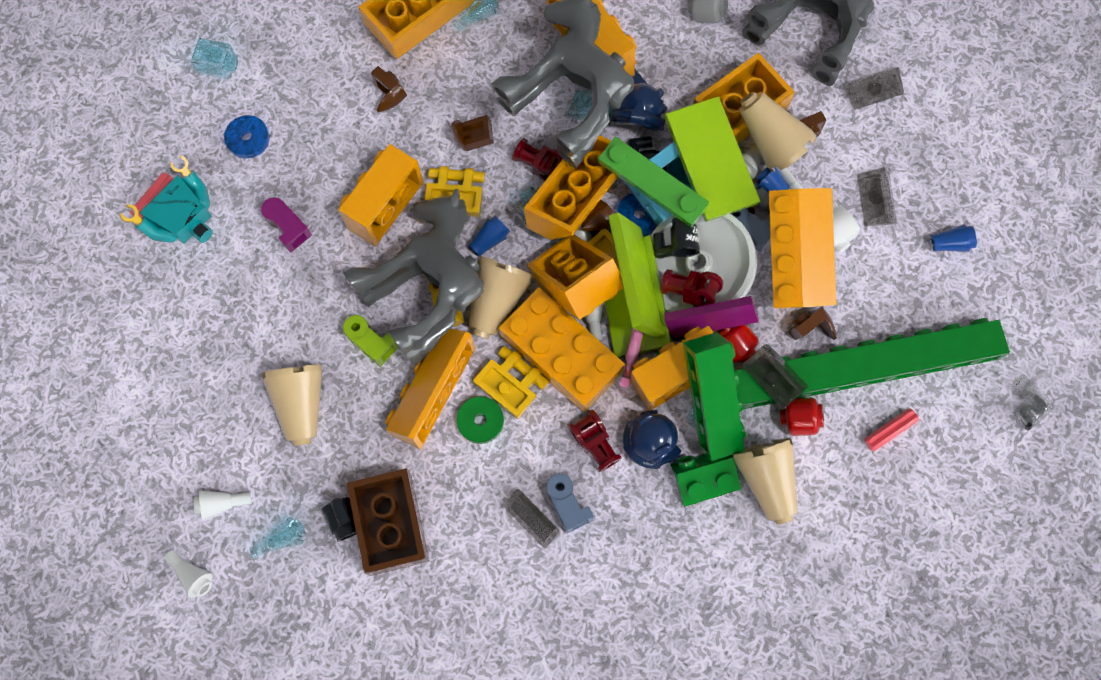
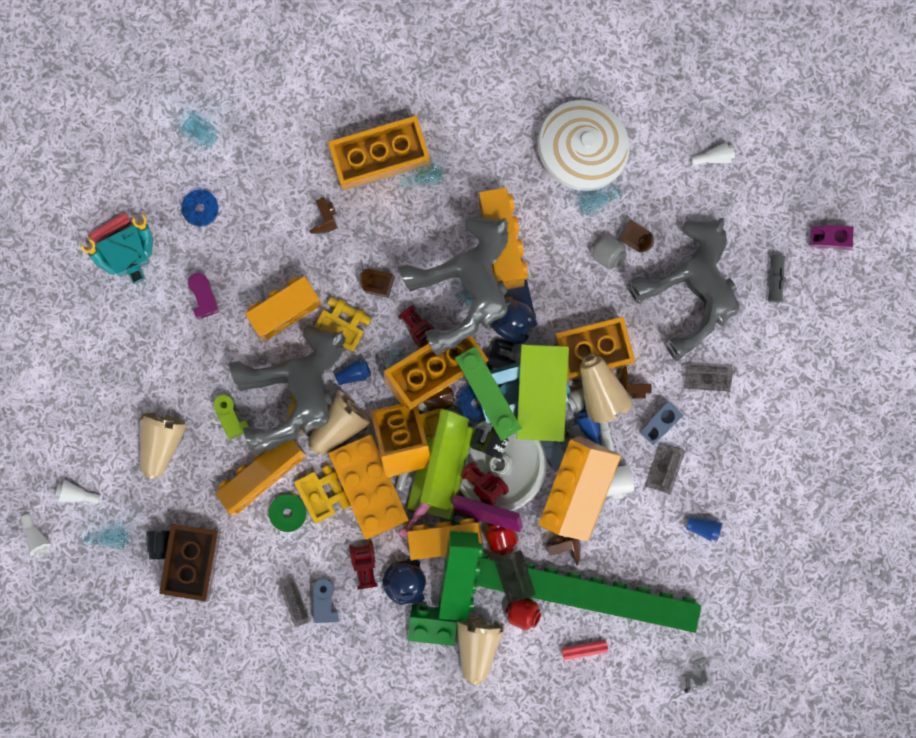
camera: 20 degrees right, 10 degrees up
(851, 149) = (661, 423): none -> sand blue leg

